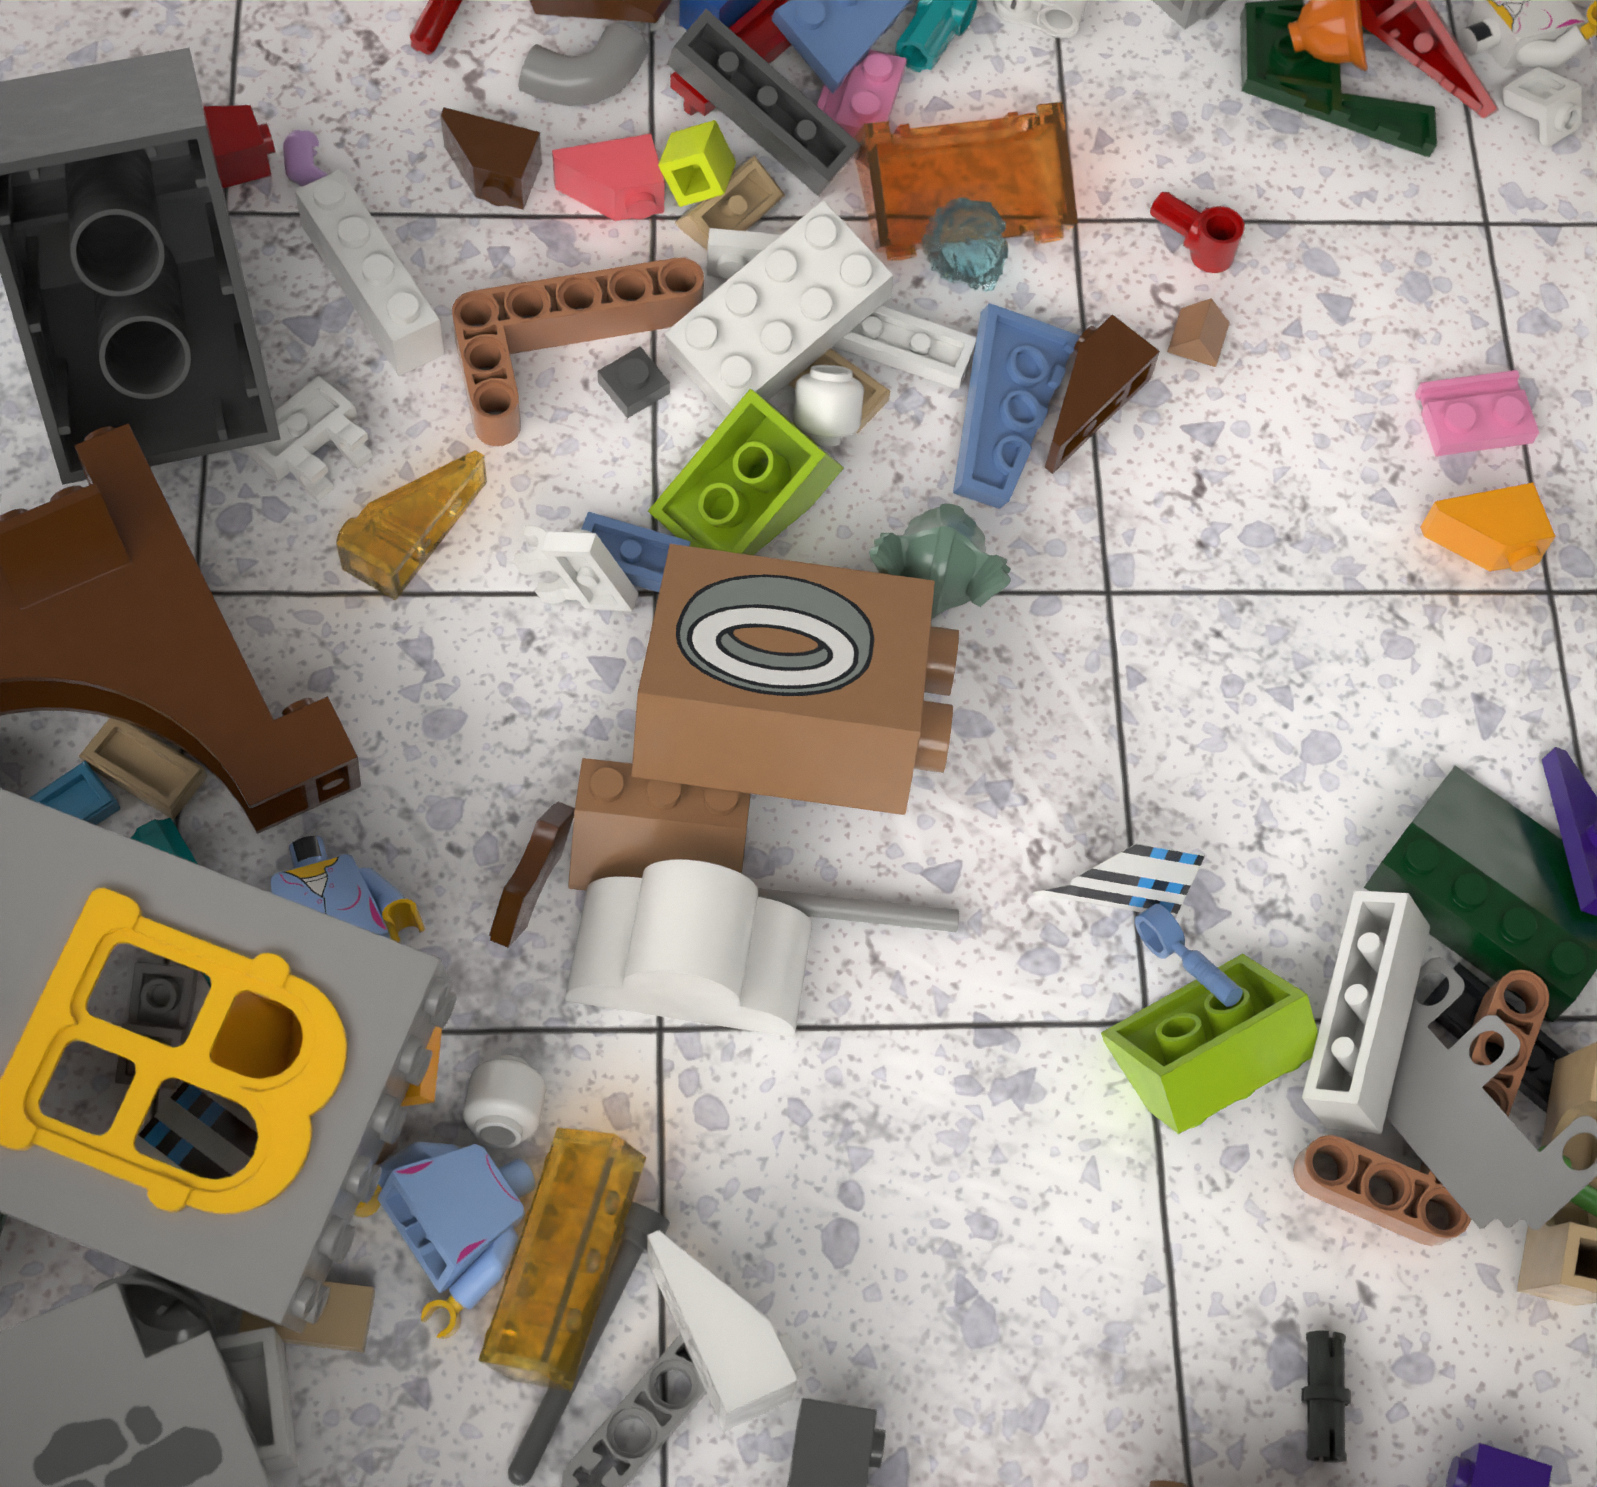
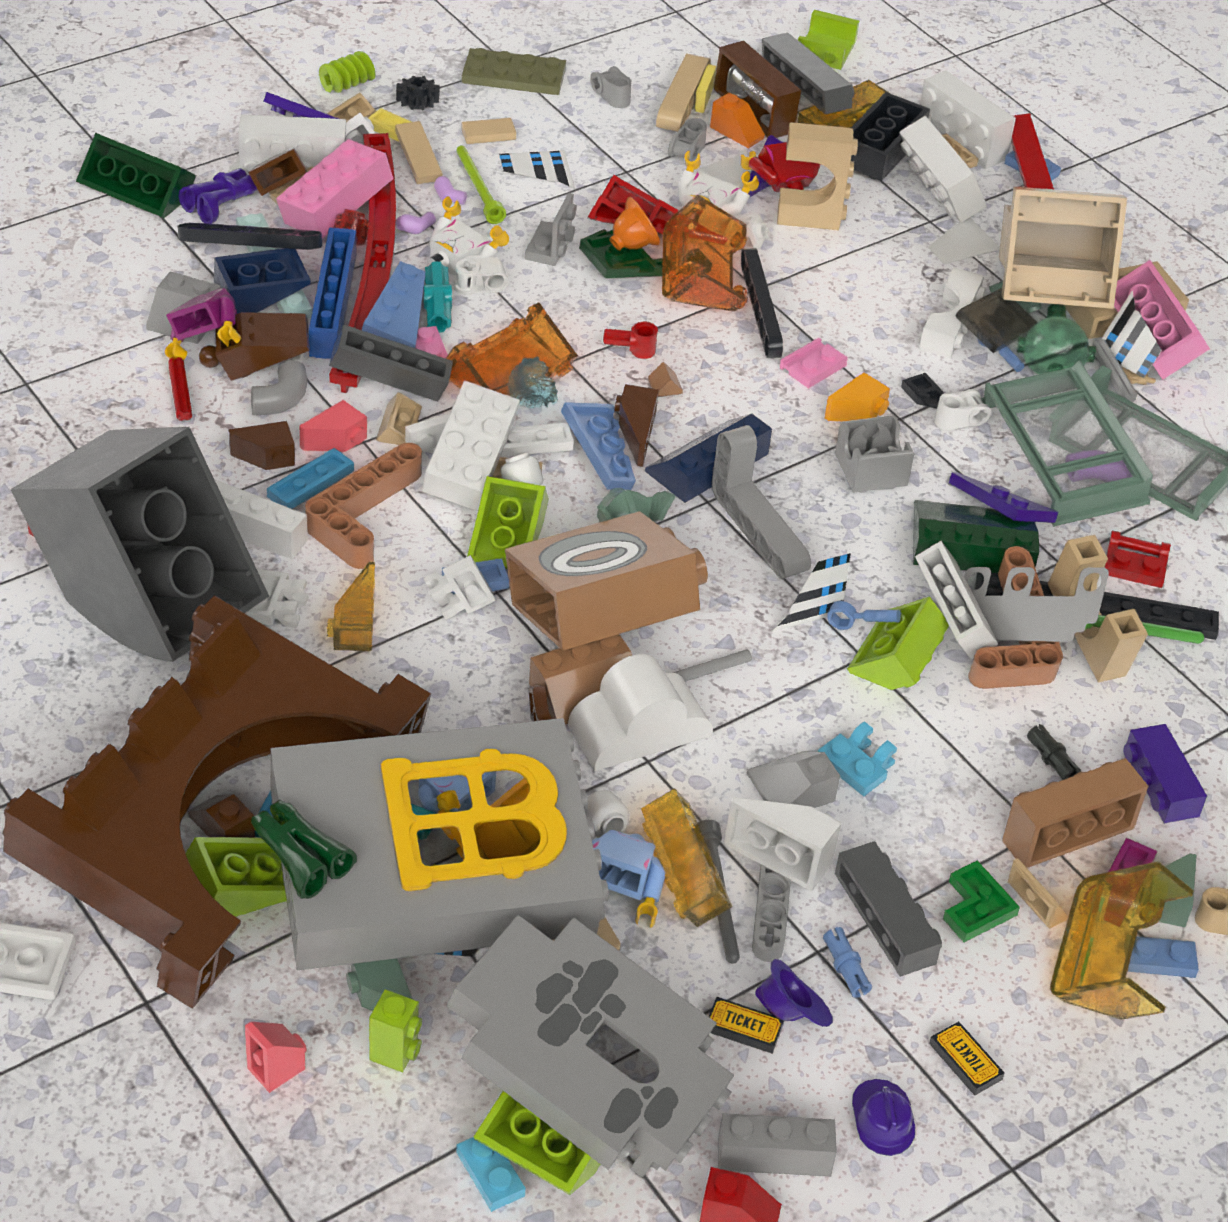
camera: 30 degrees left, 20 degrees down
(516, 250) = (310, 479): none -> dark azure plate
(633, 382) = (414, 511): dark grey plate -> none
(697, 163) = (375, 404): neon yellow brick -> none
(850, 1204) = (797, 779): none -> light grey slope
(973, 1222) = (855, 765): none -> medium azure plate
(1156, 657) = (749, 507): none -> light grey beam
(1168, 514) = (690, 468): none -> dark blue slope
(1419, 130) = (700, 256): none -> clear orange windscreen
(1432, 652) = (873, 454): none -> light grey piece
(1466, 258) = (761, 303): none -> black beam

